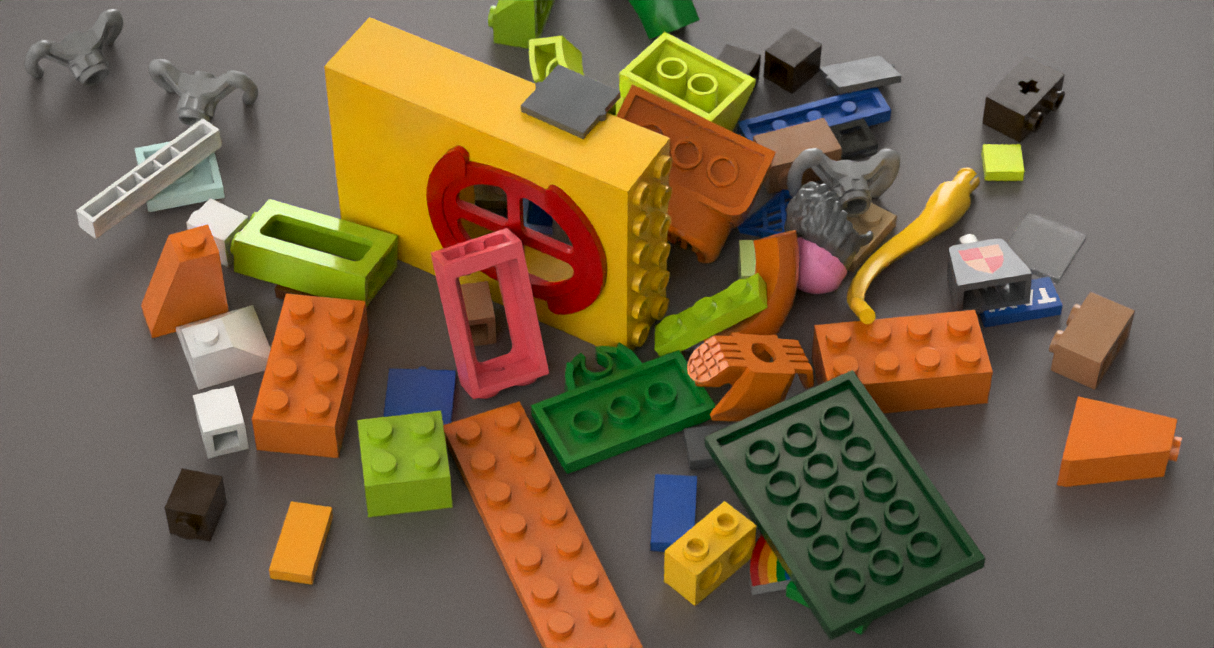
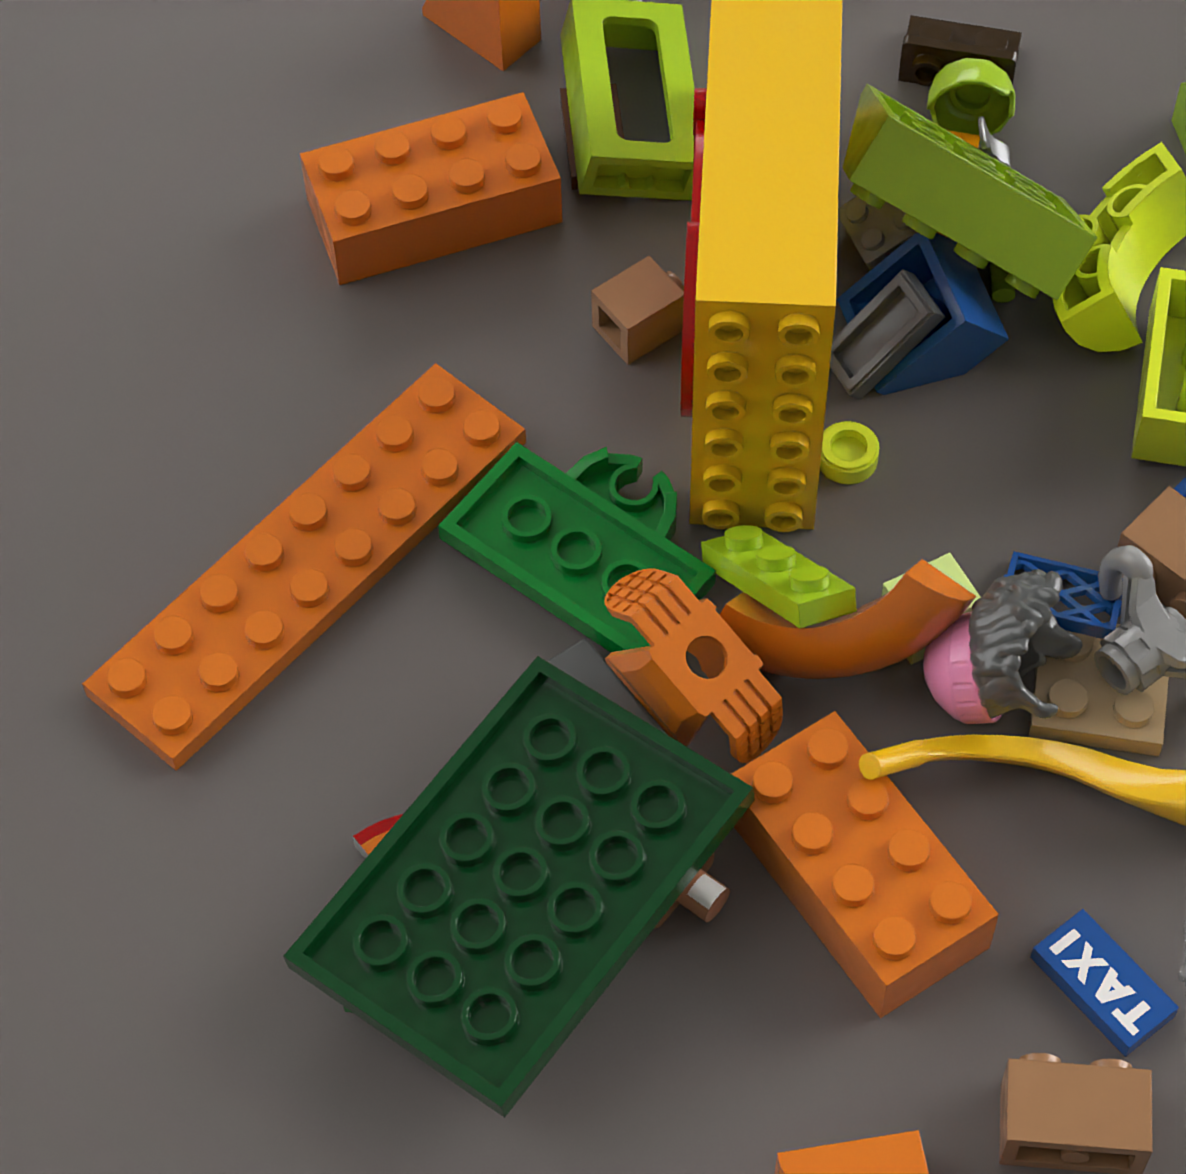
camera: 65 degrees right, 10 degrees up
(195, 505) = (165, 172): dark brown brick -> none
(220, 421) = (305, 124): white brick -> none
(224, 346) = (431, 71): white slope -> none
(301, 543) = (177, 306): light orange tile -> none
(405, 463) = (341, 348): lime brick -> none
(420, 391) = (479, 324): blue piece -> none
(527, 356) = (535, 356): coral piece -> none
(570, 101) = (826, 160): dark grey piece -> none
(672, 509) = (438, 691): blue tile -> none
(709, 553) = (369, 754): yellow brick -> none
(711, 173) = (995, 415): orange brick -> none
(986, 275) = (1103, 905): dark grey torso -> none

